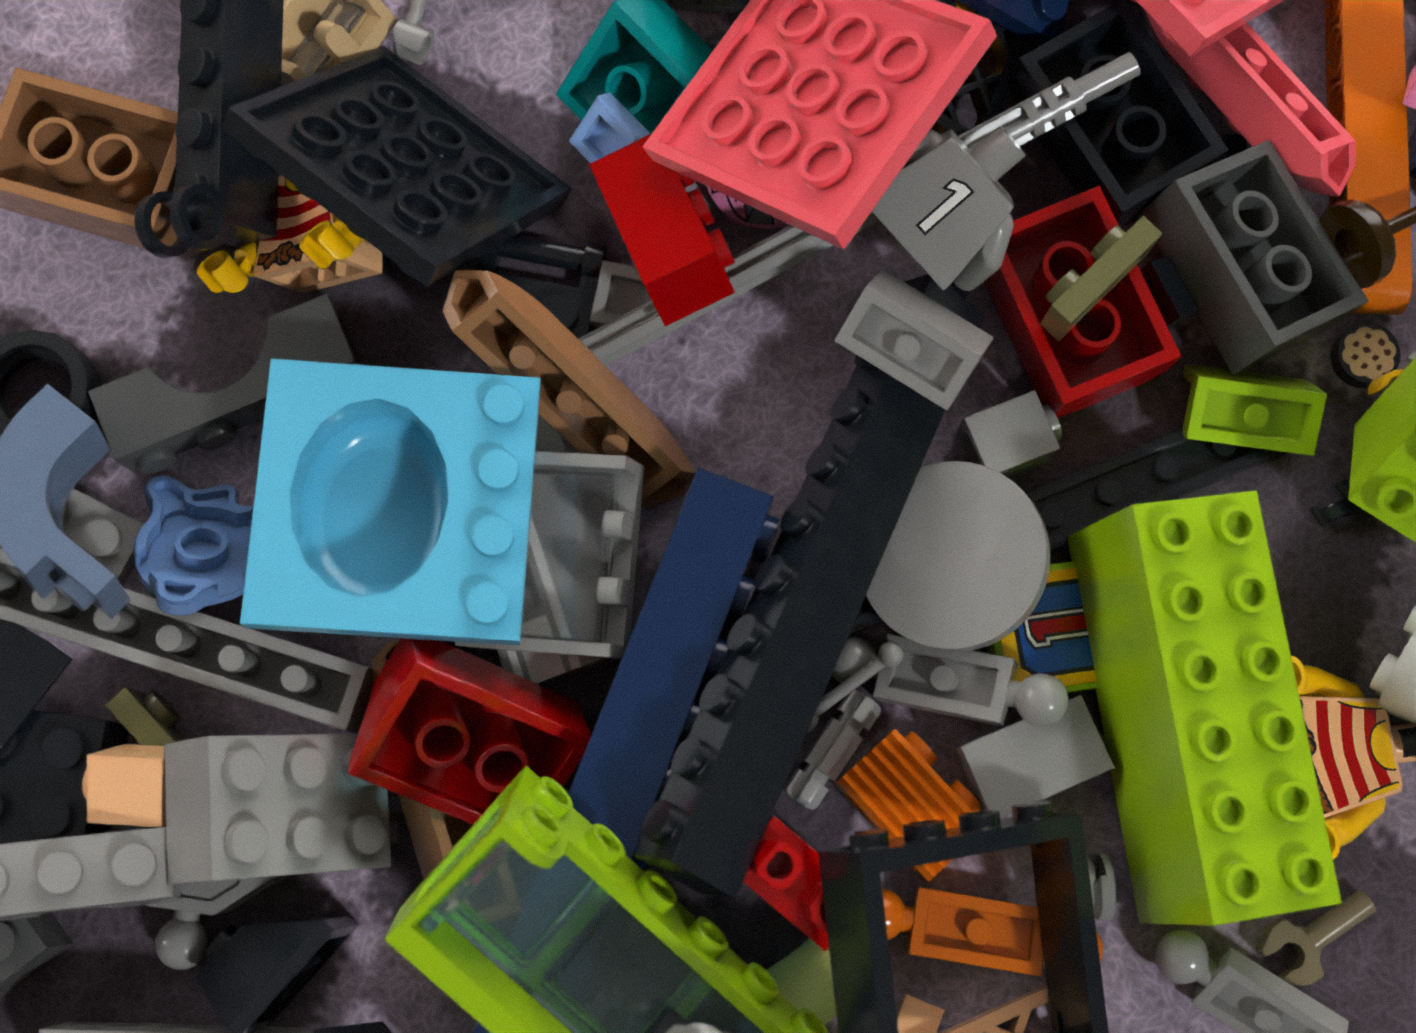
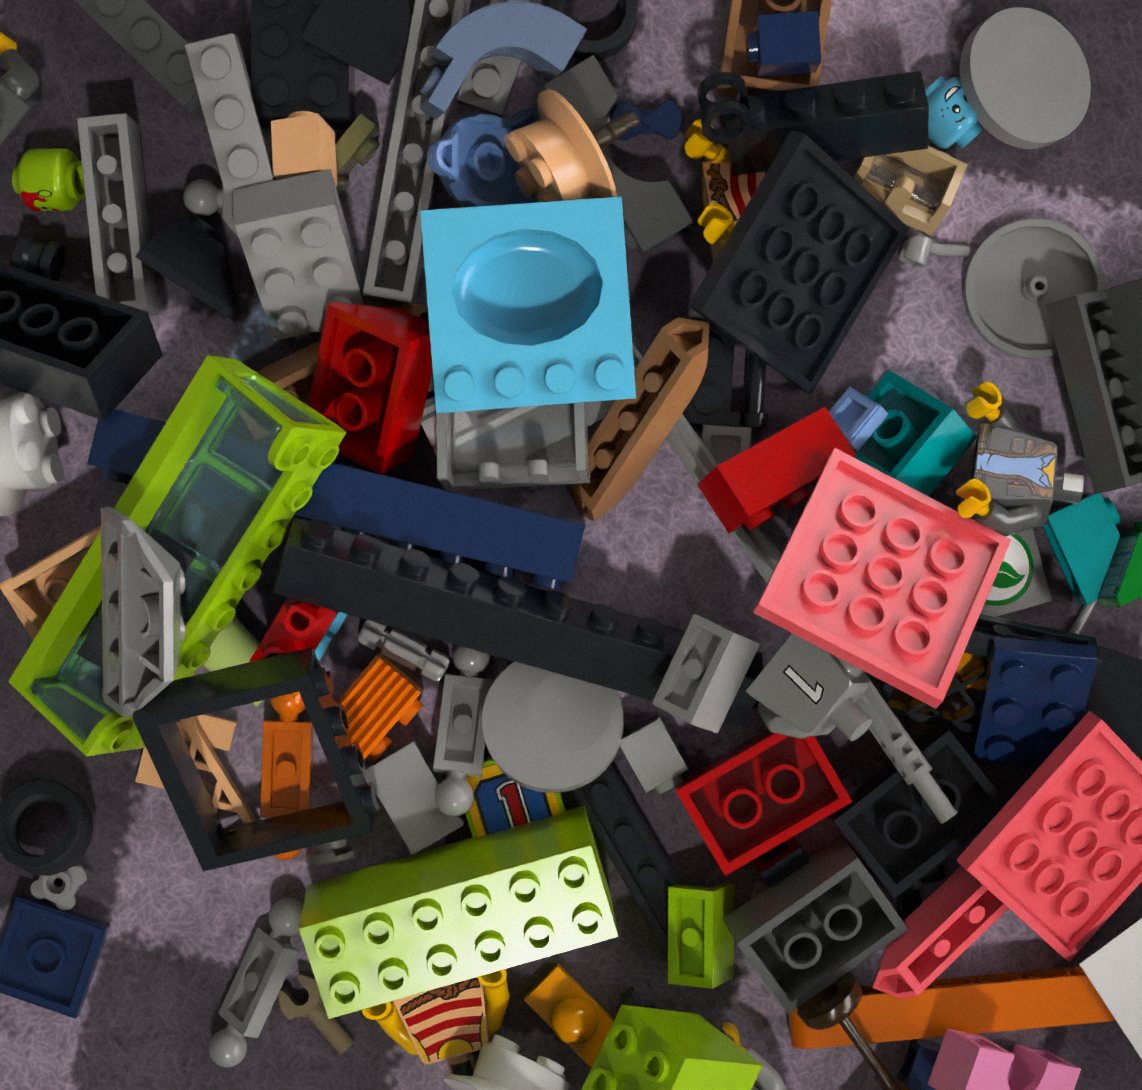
camera: 80 degrees right, 10 degrees up
(115, 136) = (785, 43): none -> dark blue brick
(195, 325) = (664, 120): none -> dark blue piece
(199, 436) = (561, 155): none -> light nougat piece
(889, 655) = (475, 682): light grey hinge -> none
(1115, 256) = (790, 819): olive plate -> none
(1344, 587) = (570, 1013): none -> light orange tile
(1364, 354) = (757, 1019): tile -> none

